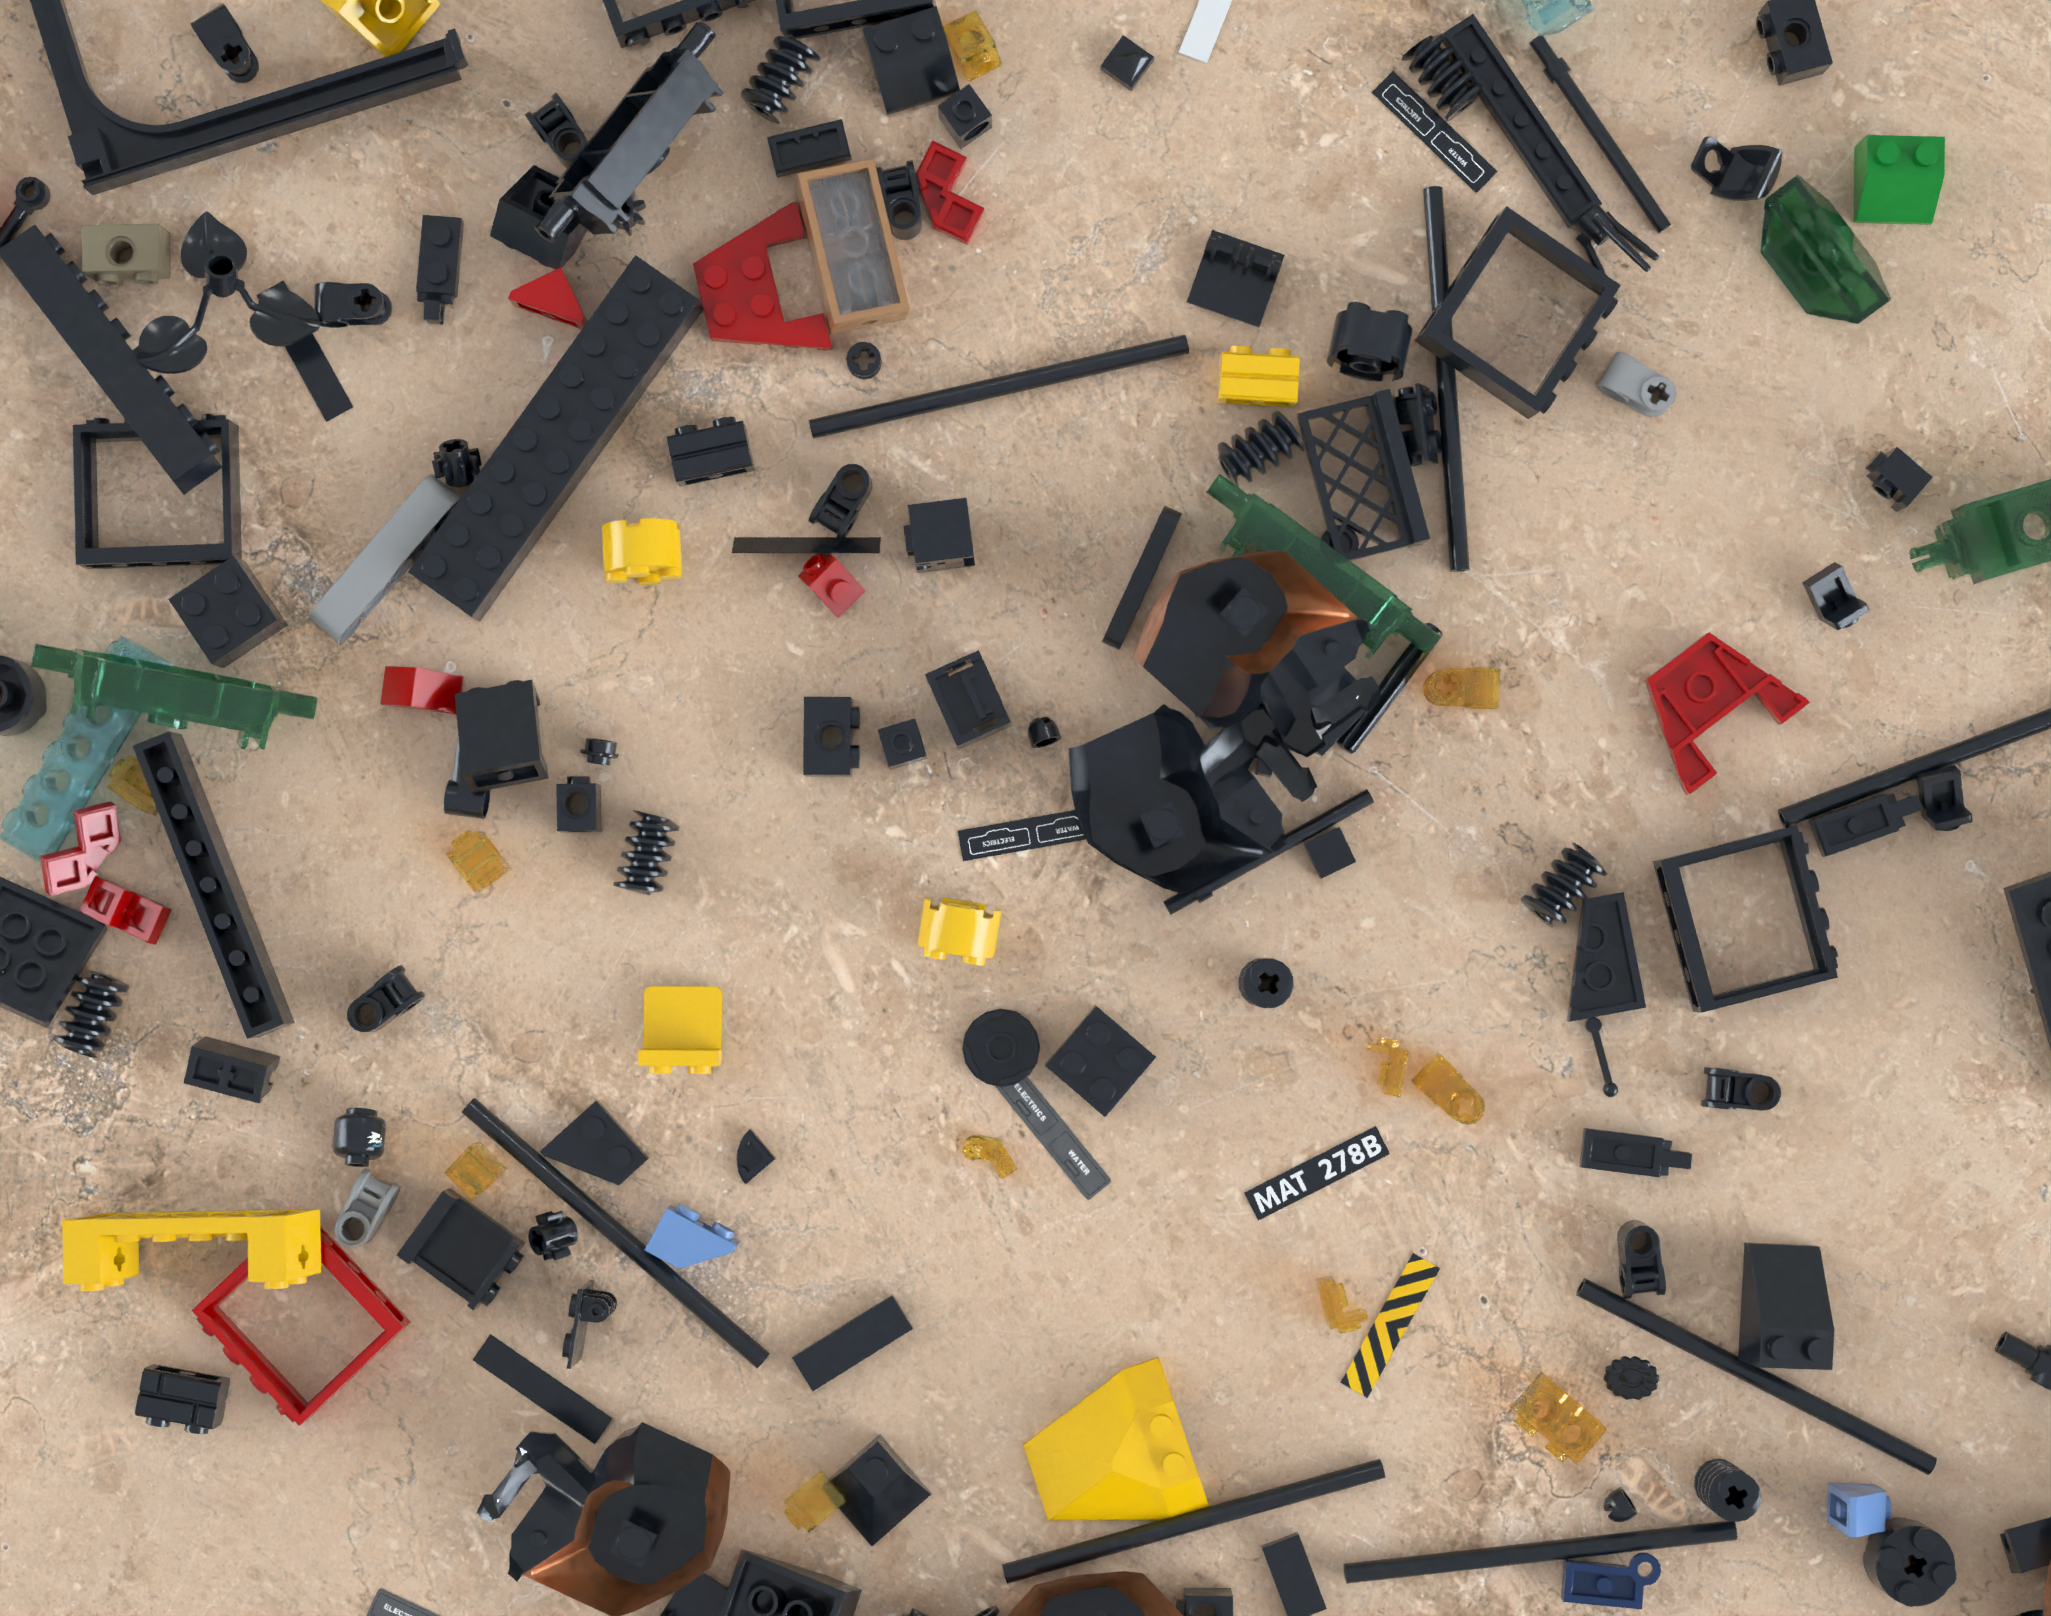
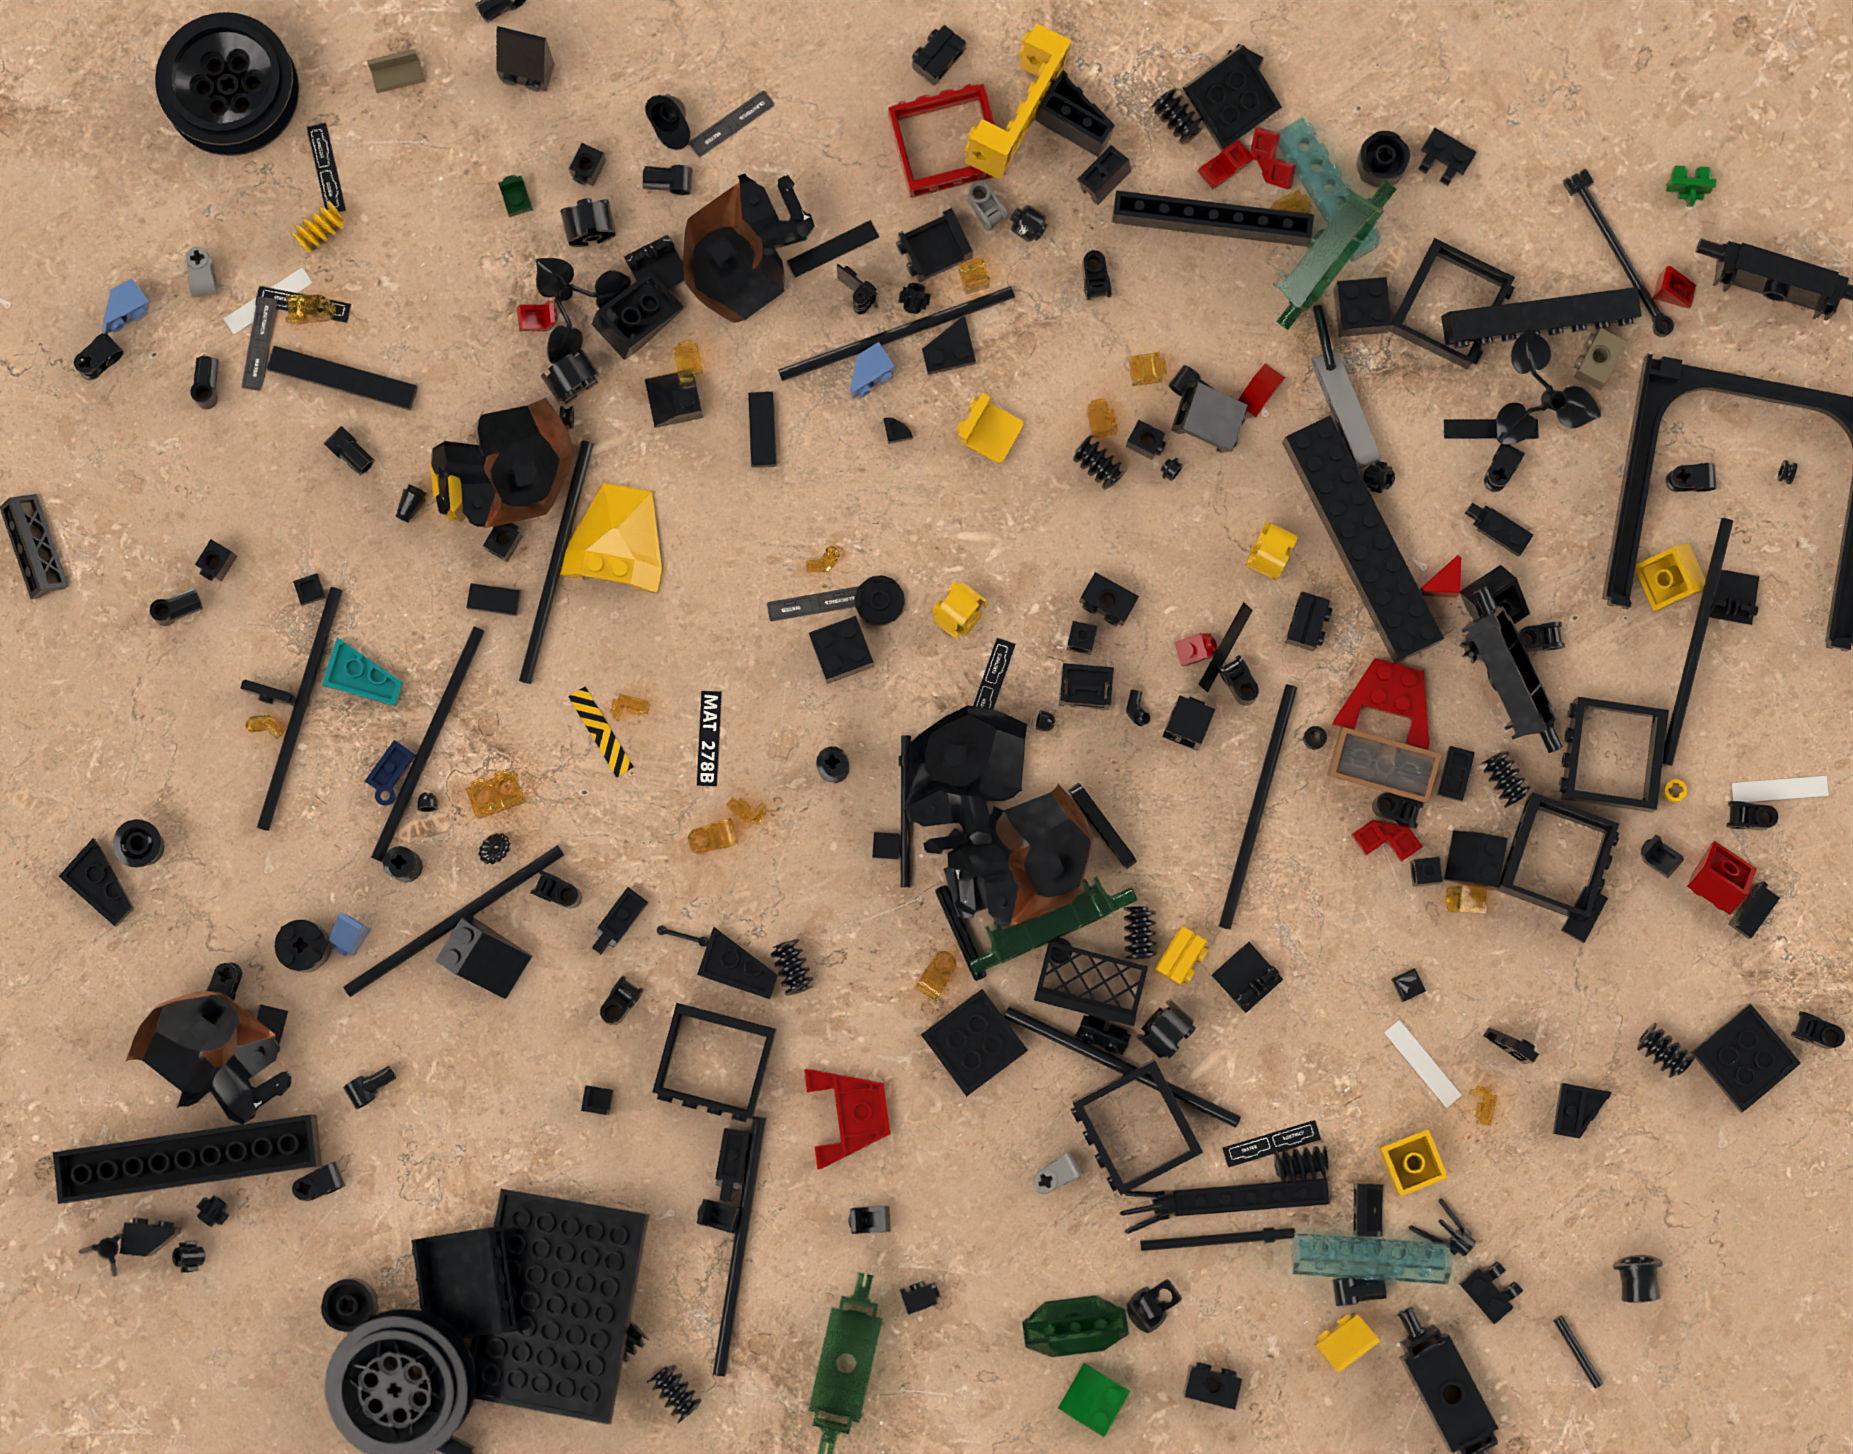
camera: 120 degrees right, 5 degrees down
(170, 1157) = (1074, 116): none -> black wedge
(301, 640) = (1324, 337): none -> black bar
(582, 884) = (1101, 418): none -> clear yellow brick
(960, 620) = (1134, 709): none -> black arm
(1525, 589) = (974, 1042): none -> black plate
(1886, 1045) = (597, 1100): none -> black panel

